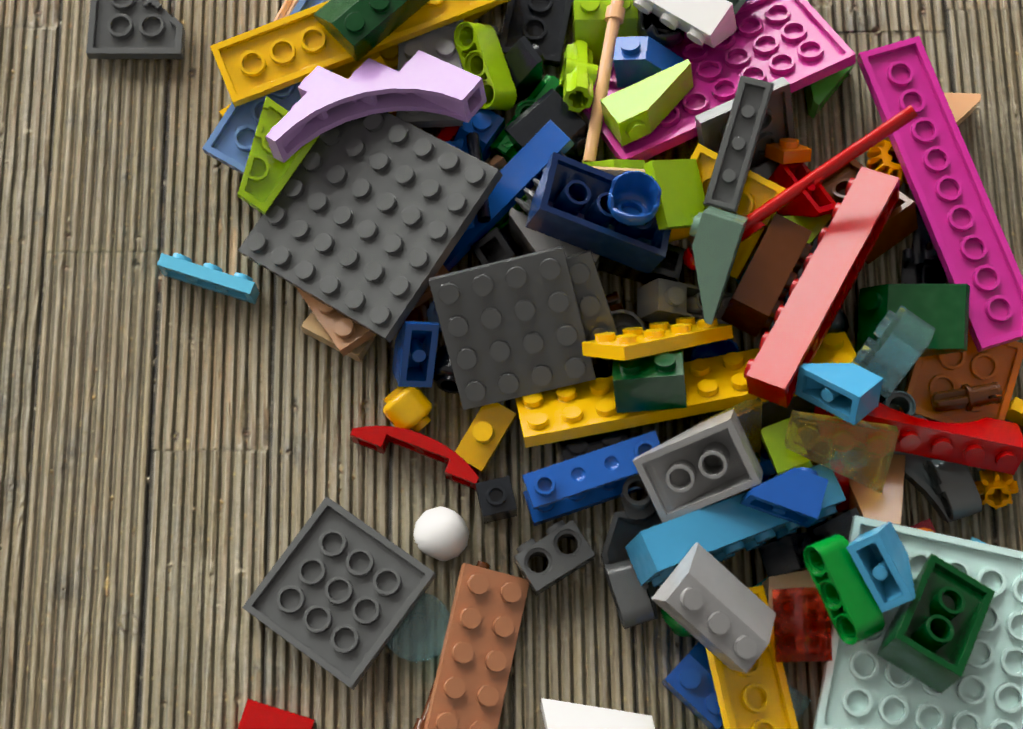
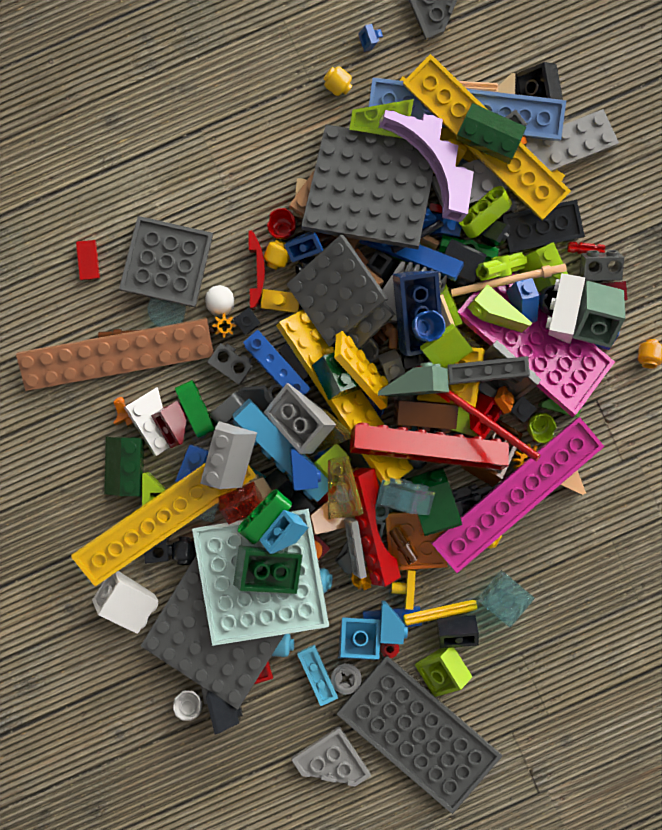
camera: 65 degrees right, 15 degrees up
(137, 134) = (369, 37): none -> blue tile
(180, 206) = (337, 81): none -> yellow head
(208, 277) = (305, 115): medium azure plate -> none
(362, 380) = (281, 224): none -> red hair
(494, 541) = (220, 321): none -> light orange gear
(604, 648) = (195, 408): none -> green beam
(613, 282) = (392, 333): none -> nougat arm
(615, 697) = (171, 423): none -> slope
(815, 134) = (522, 410): none -> black brick
(840, 389) = (369, 476): dark azure slope -> none
(850, 120) = (541, 427): none -> lime hair
(945, 471) = (355, 547): none -> light grey tile

